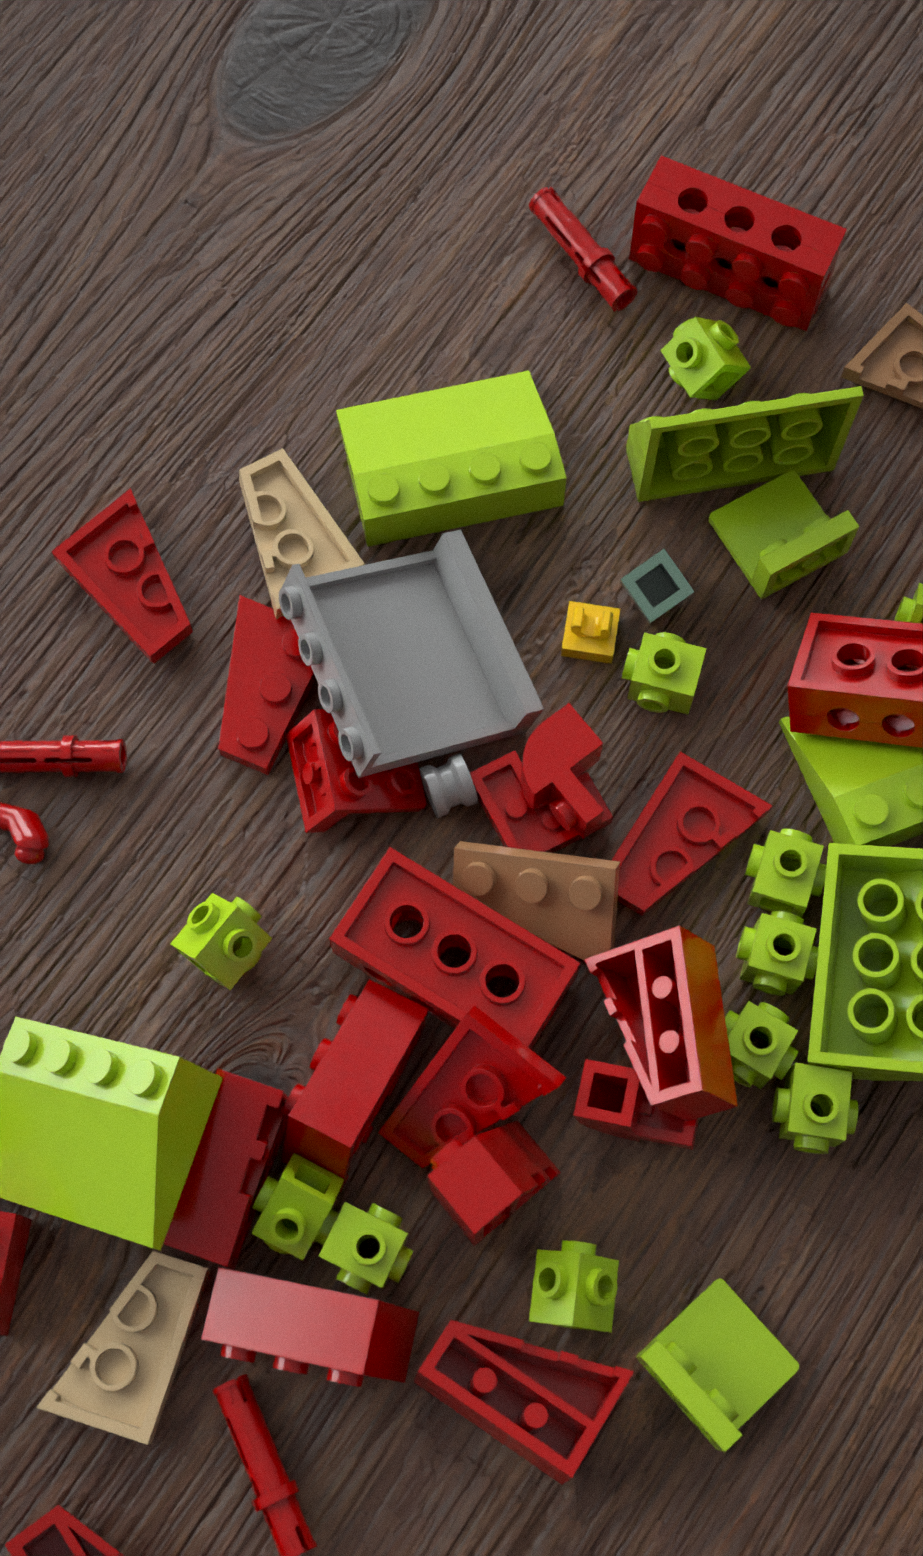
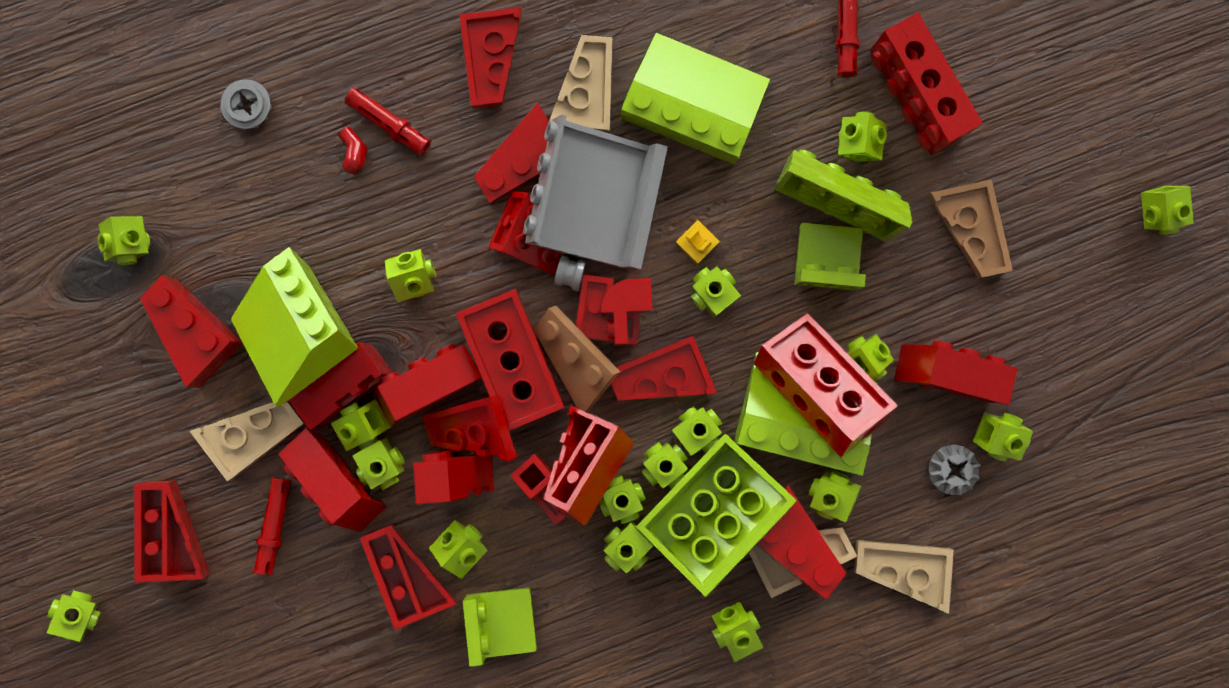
camera: 30 degrees right, 15 degrees up
(656, 586) = (742, 244): sand green brick -> none

